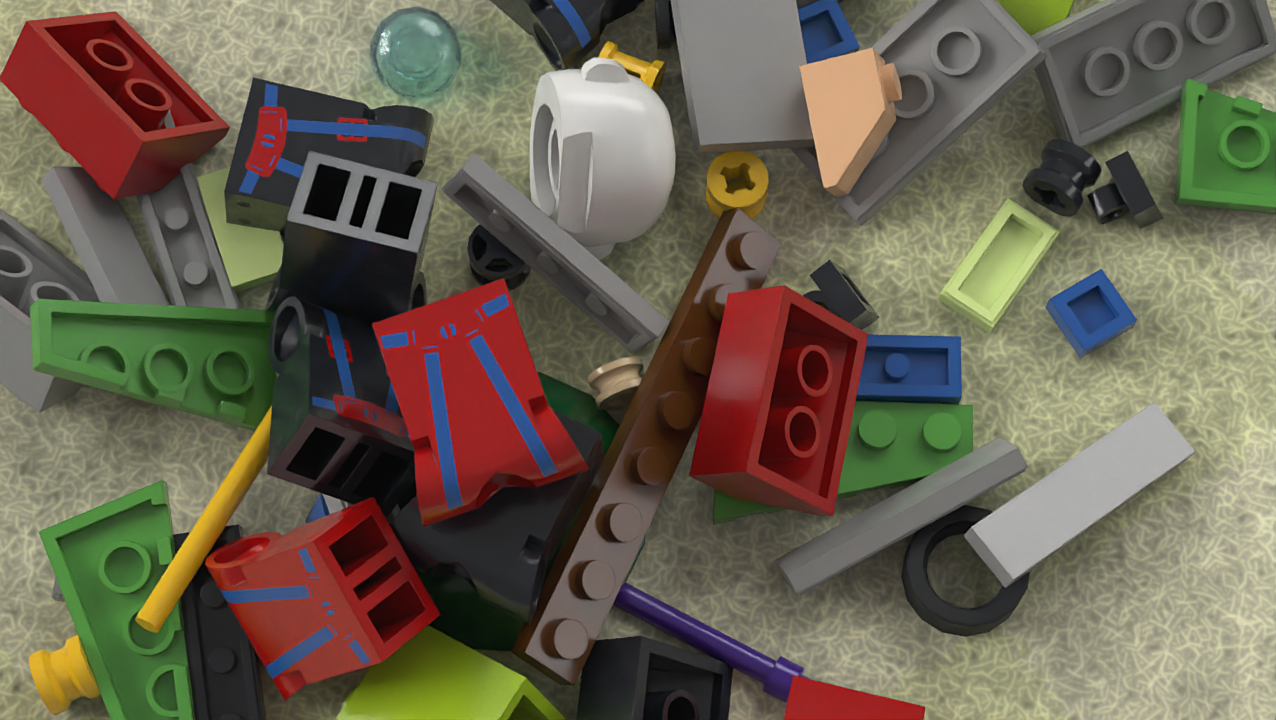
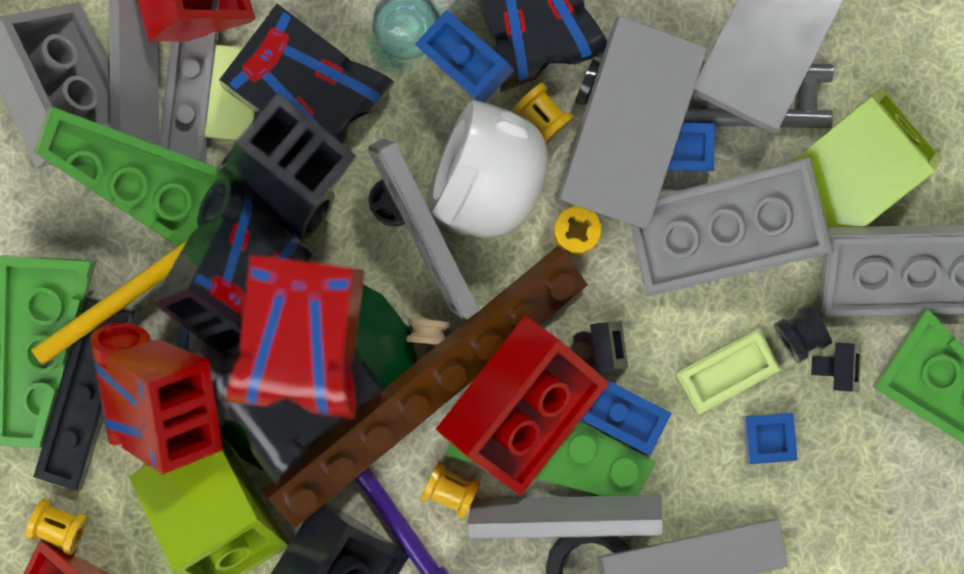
camera: 35 degrees right, 15 degrees up
(504, 43) = (464, 57): none -> blue plate
(743, 556) = (450, 490): none -> yellow bush
(849, 113) = (674, 224): light nougat slope -> none

